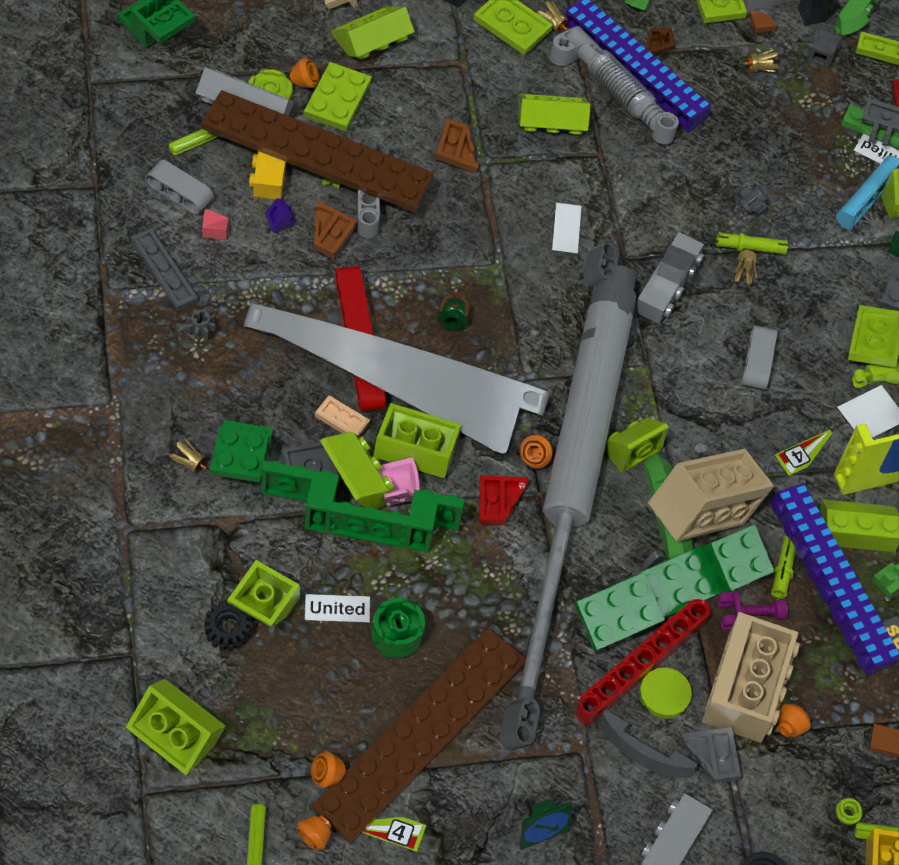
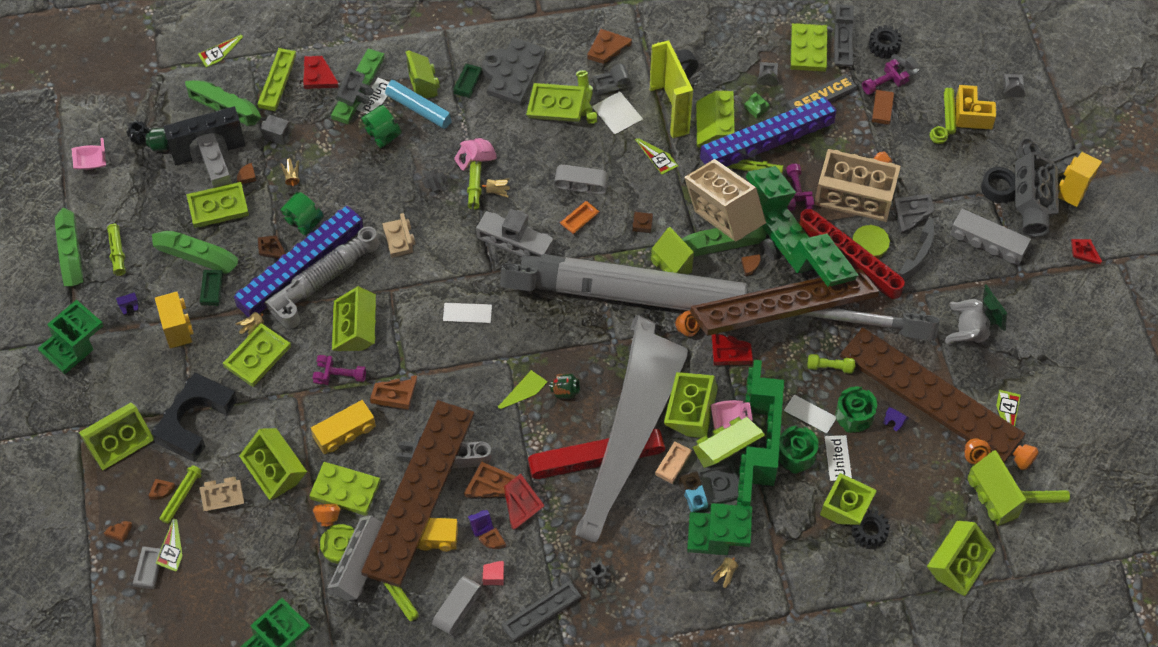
camera: 85 degrees left, 0 degrees up
(260, 229) = (492, 539): none -> dark orange tile
(265, 782) = (996, 489): none -> lime slope
(297, 432) = (693, 491): none -> leg
(302, 254) = (521, 501): none -> red wing
(345, 551) = (798, 449): none -> green brick
(387, 680) = (899, 418): none -> dark purple tile
(405, 580) = (810, 413): none -> white sticker
(413, 94) = (343, 427): none -> yellow brick
(457, 279) = (528, 387): none -> lime sticker
(469, 632) = (846, 365): none -> lime piece
(483, 113) = (323, 378): none -> magenta bar
(522, 793) = (972, 322): none -> light grey hair
(550, 546) = (780, 303): none -> reddish brown plate
(630, 539) = (750, 264): none -> dark orange tile
(673, 163) = (398, 236): none -> tan bracket
(696, 422) = (642, 222): none -> reddish brown plate
(700, 63) = (301, 212): none -> green brick
(702, 352) = (579, 217): none -> orange tile
(799, 248) = (476, 150): none -> bright pink piece
(830, 146) = (381, 125): none -> green brick

